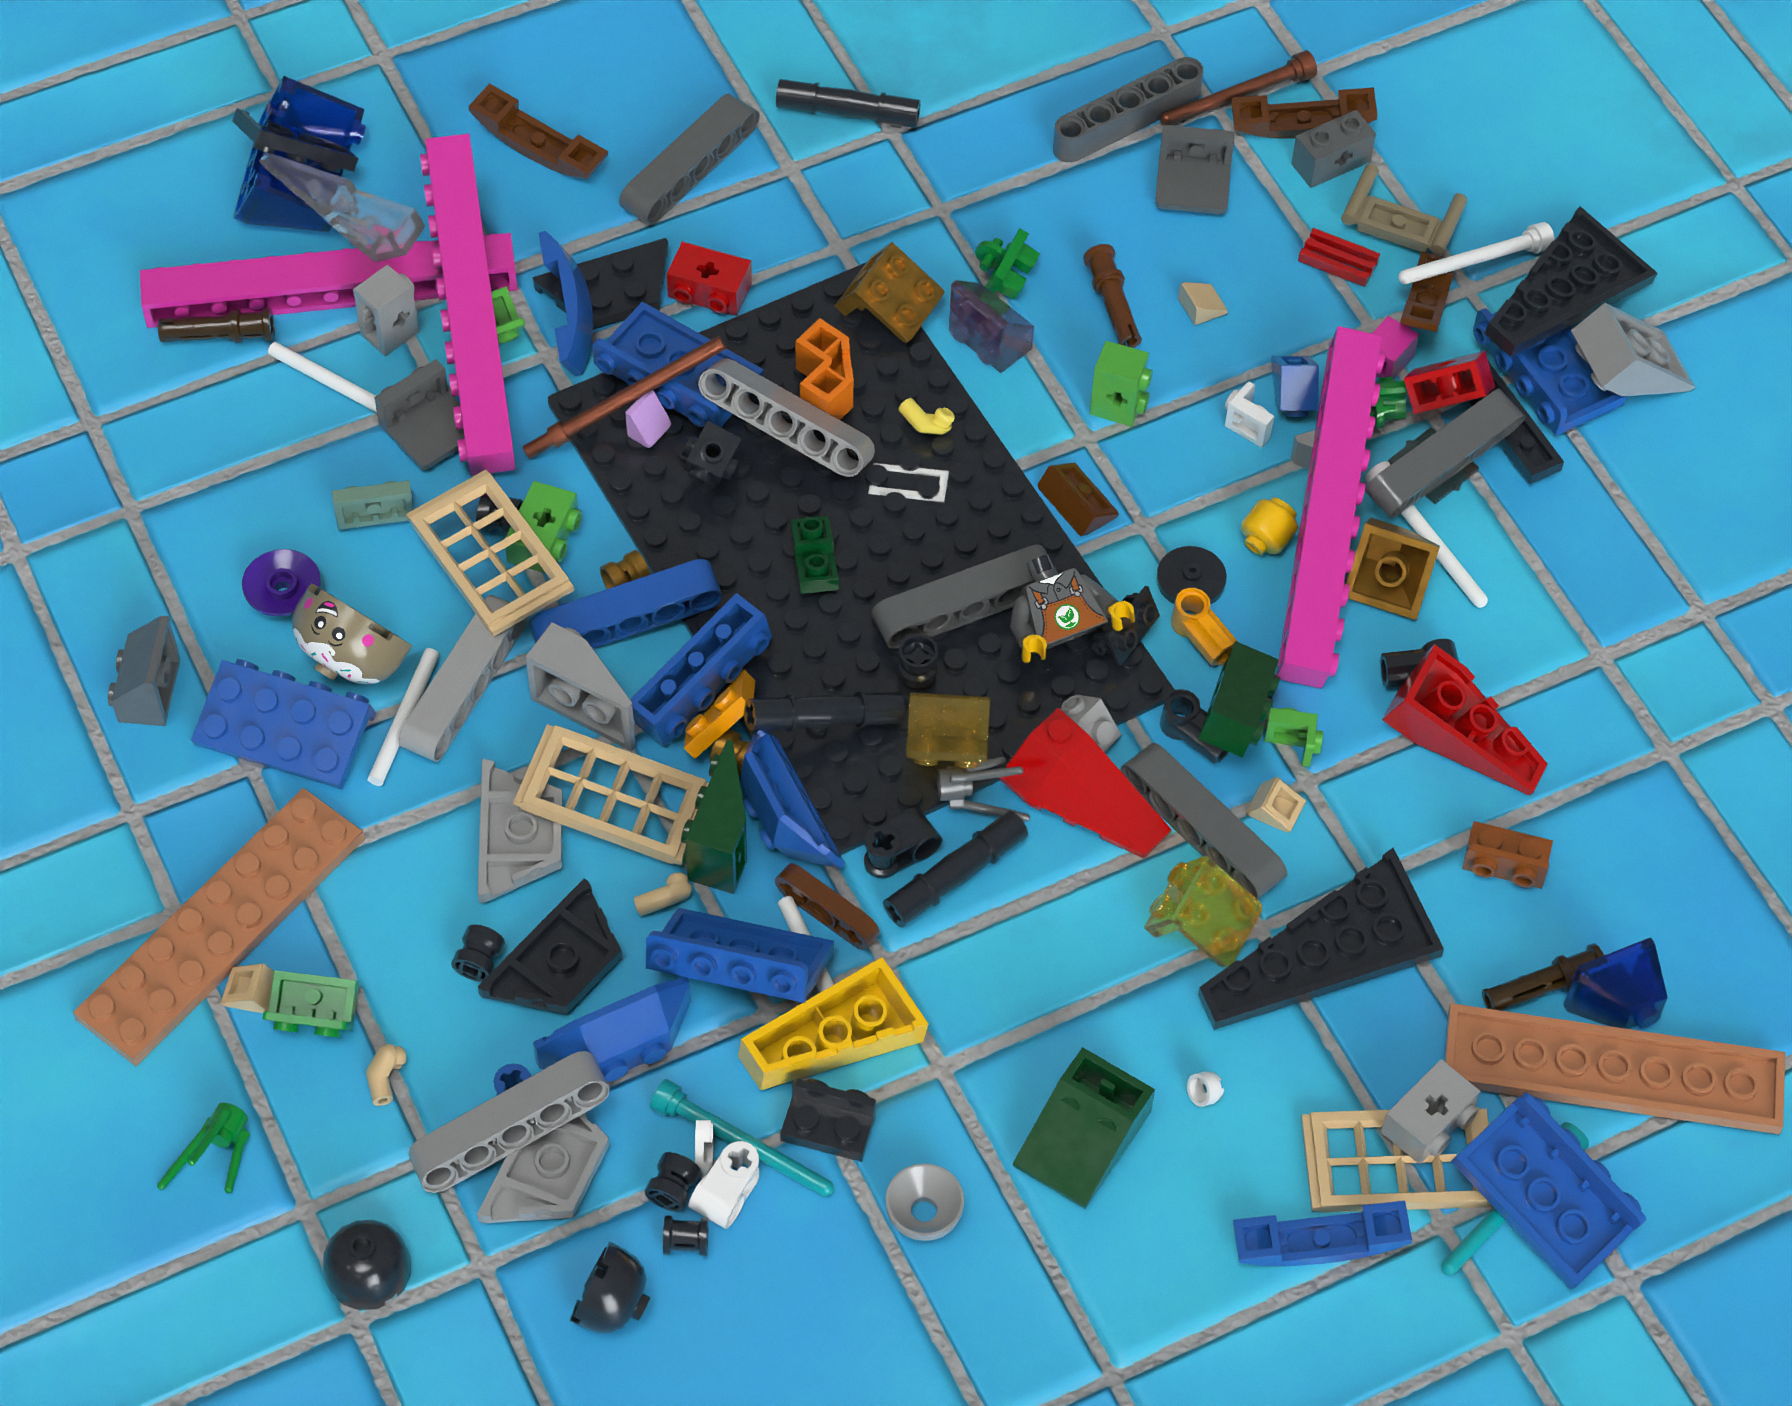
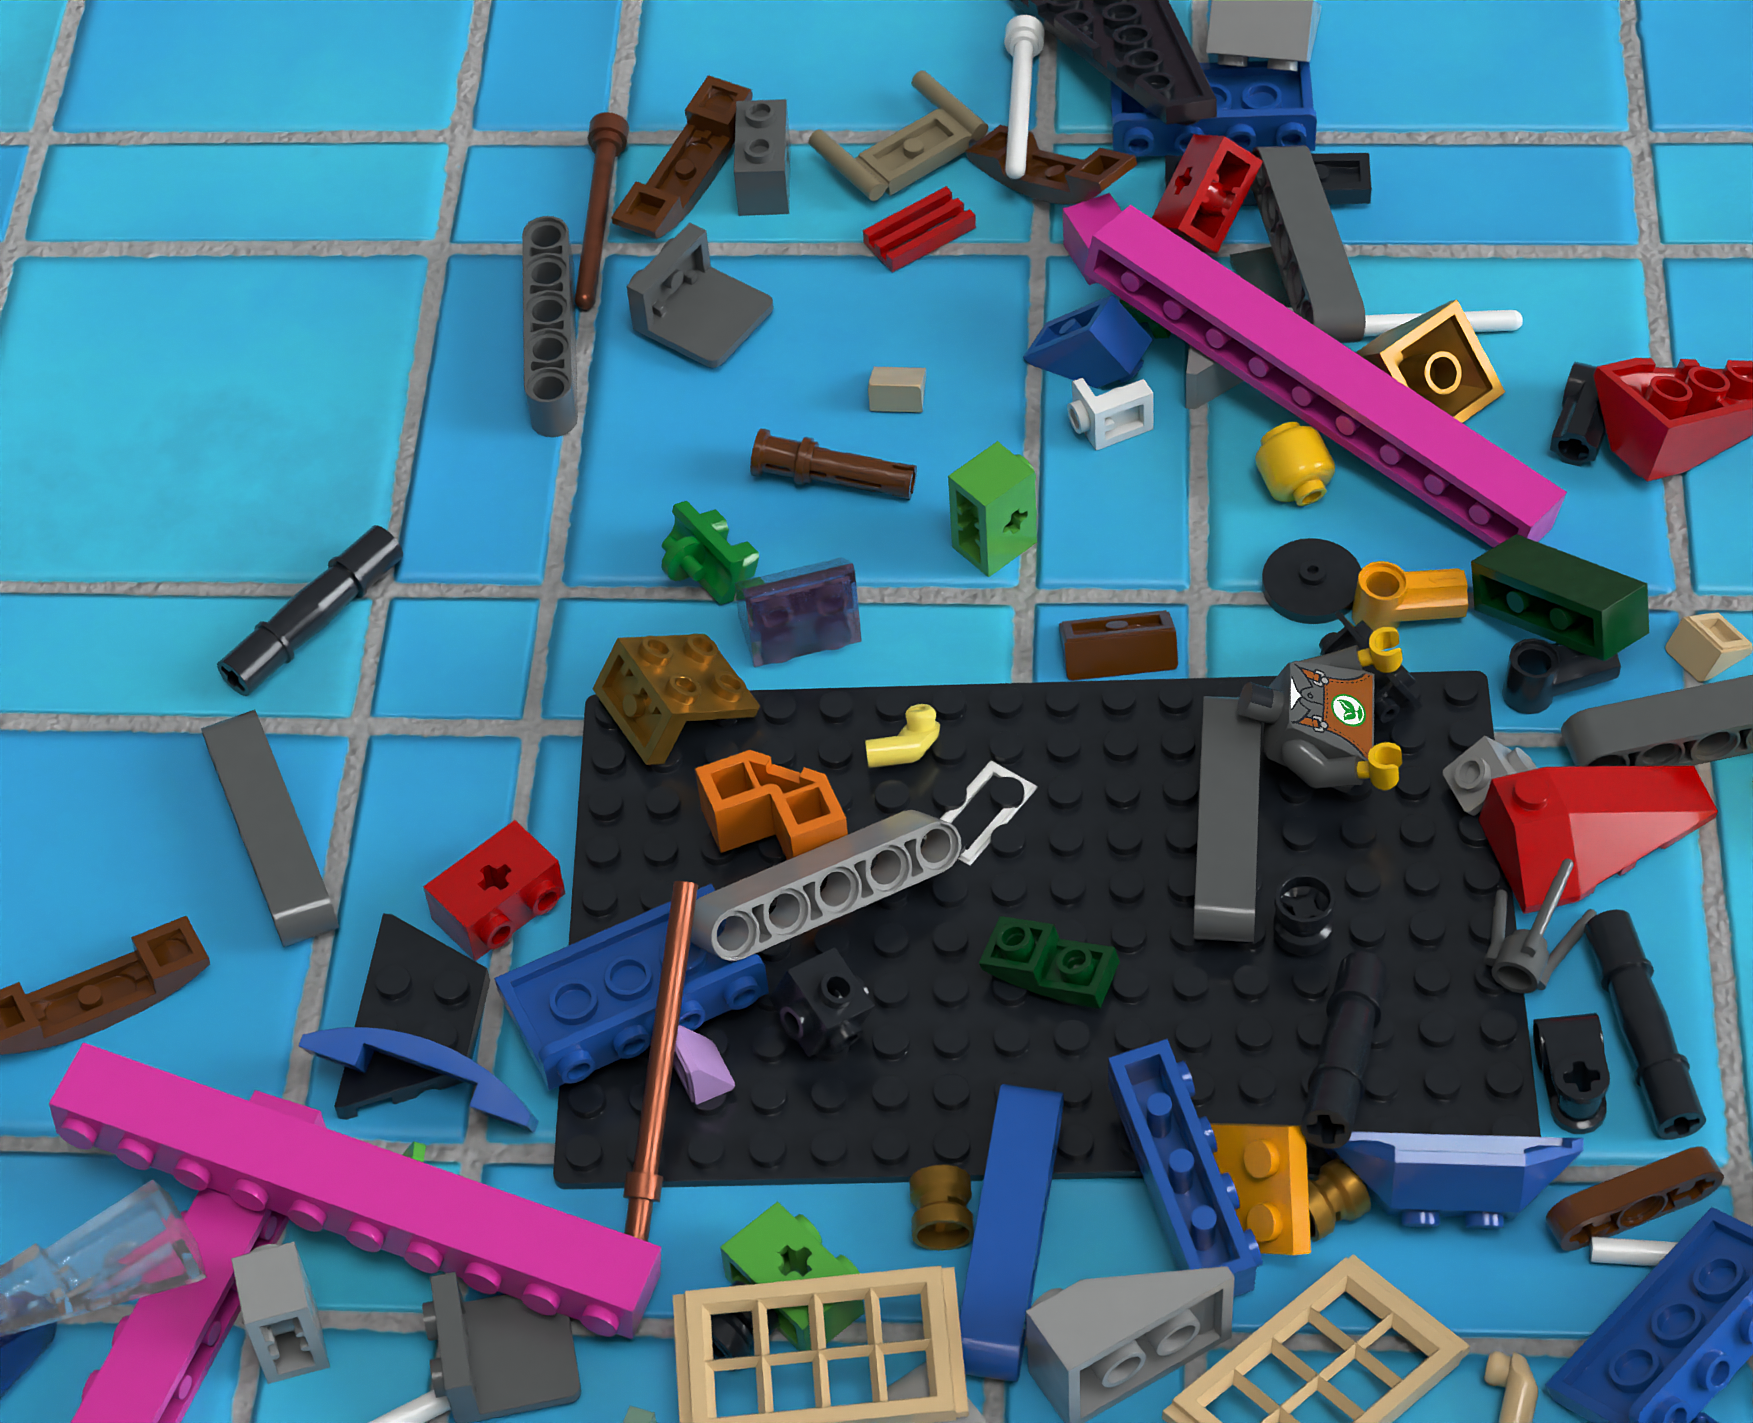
camera: 55 degrees left, 5 degrees down
(717, 834) = (1453, 1255): dark green slope -> none
(948, 729) = (1444, 931): clear yellow bracket -> none
(1295, 729) = (1637, 560): bright green bracket -> none

